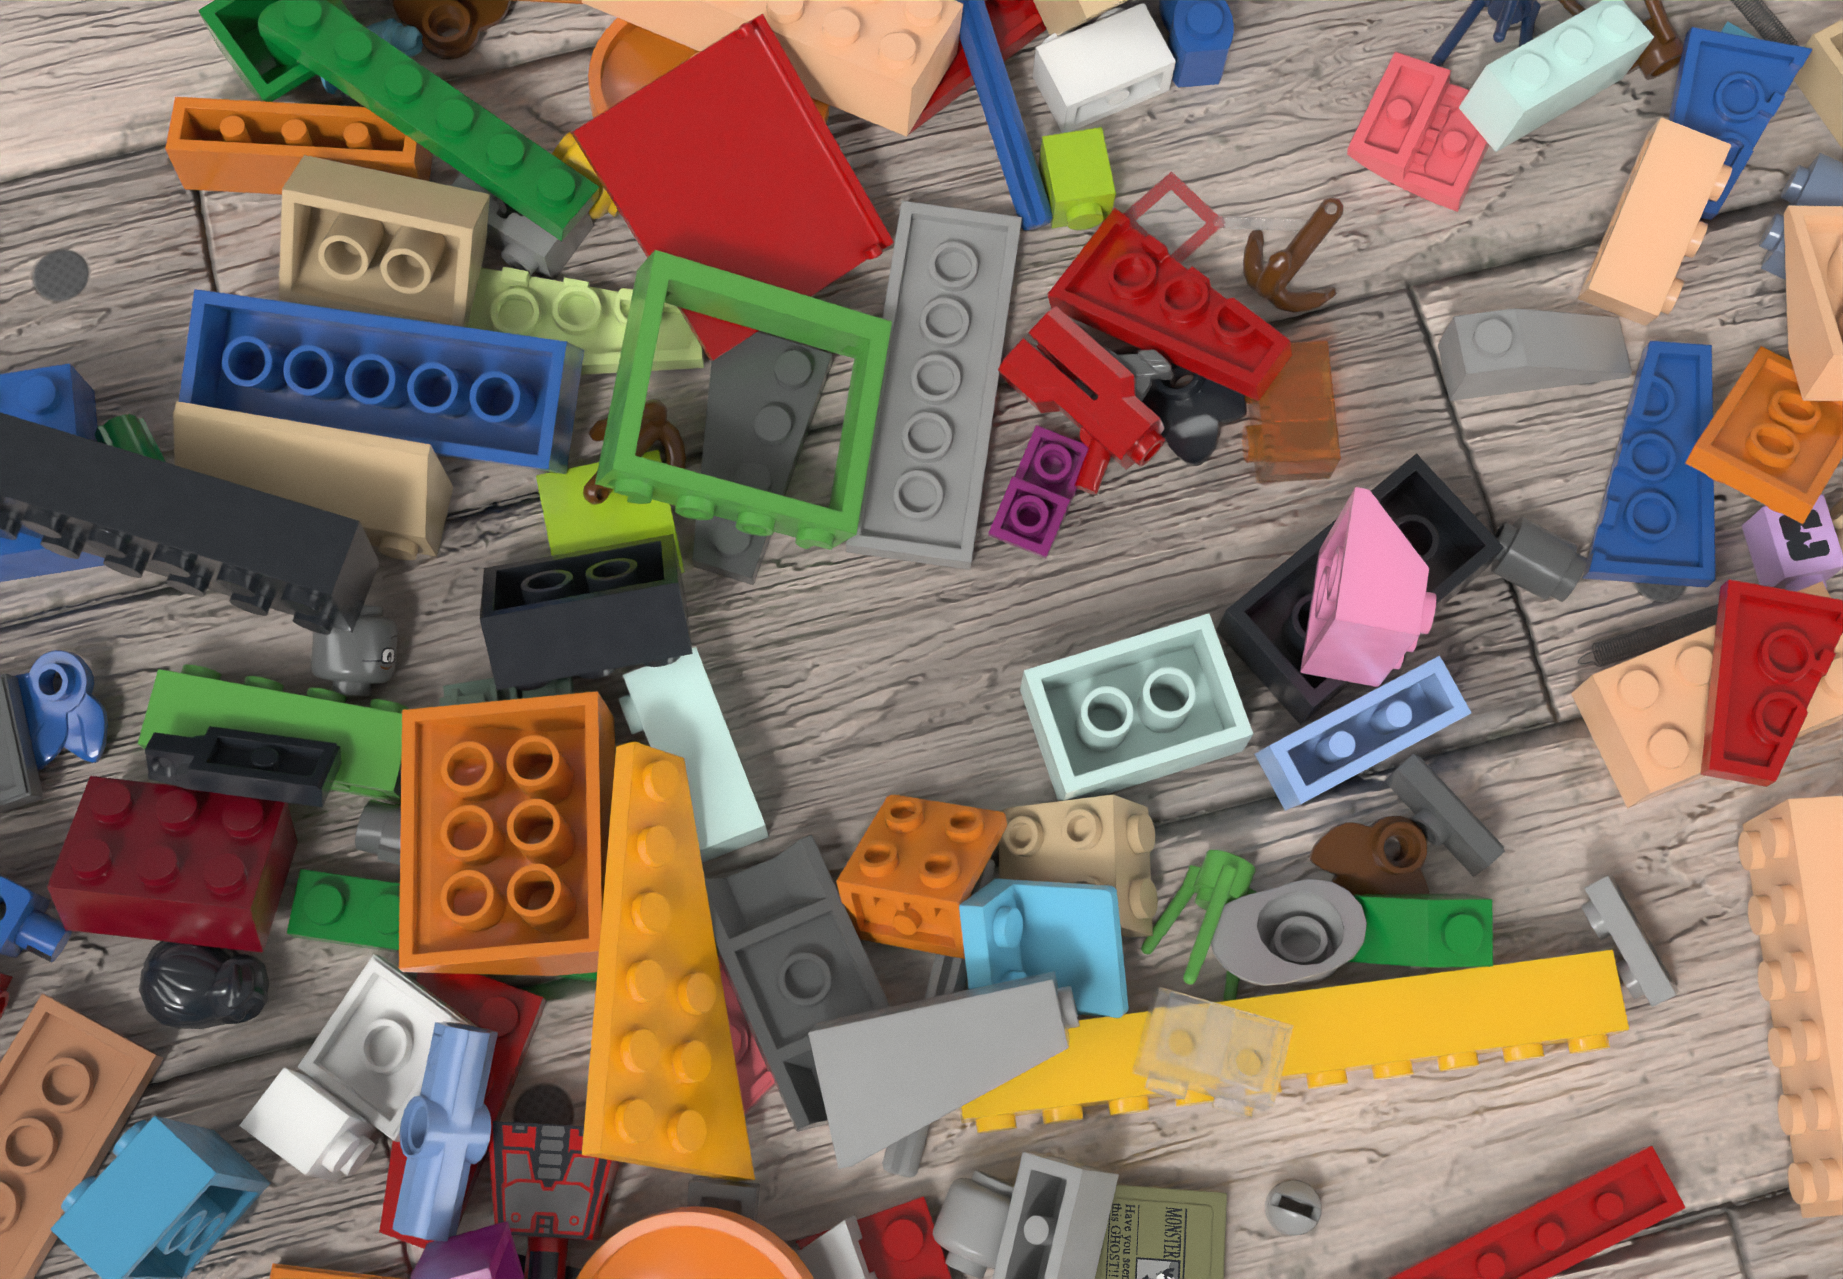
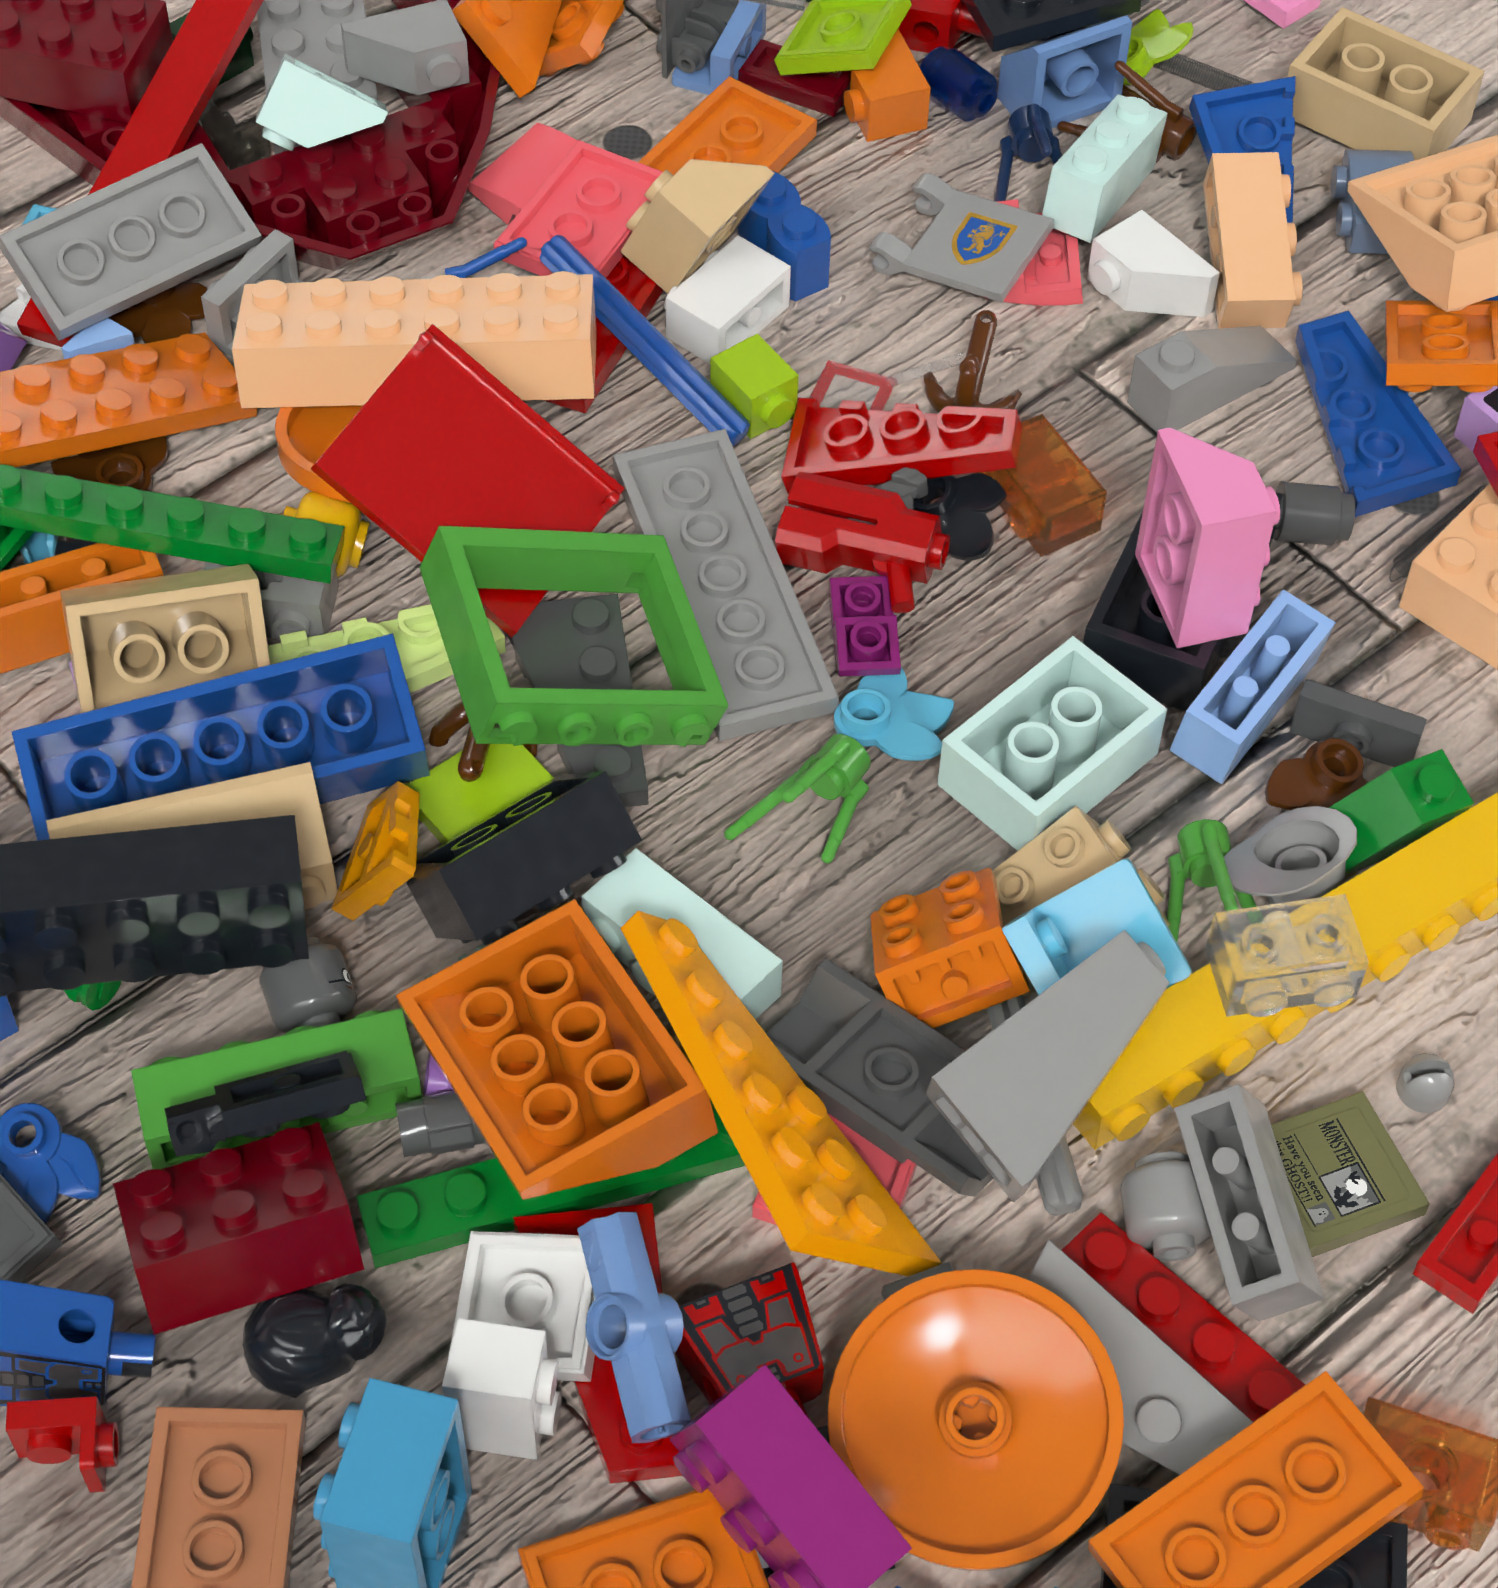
camera: 25 degrees left, 20 degrees down
(481, 538) = (382, 852): none -> light orange wing
(924, 633) = (830, 773): none -> bright green plant
(1026, 604) = (892, 718): none -> medium azure plate
(1376, 105) = (969, 243): none -> light grey flag
(1539, 208) = (1151, 270): none -> white slope

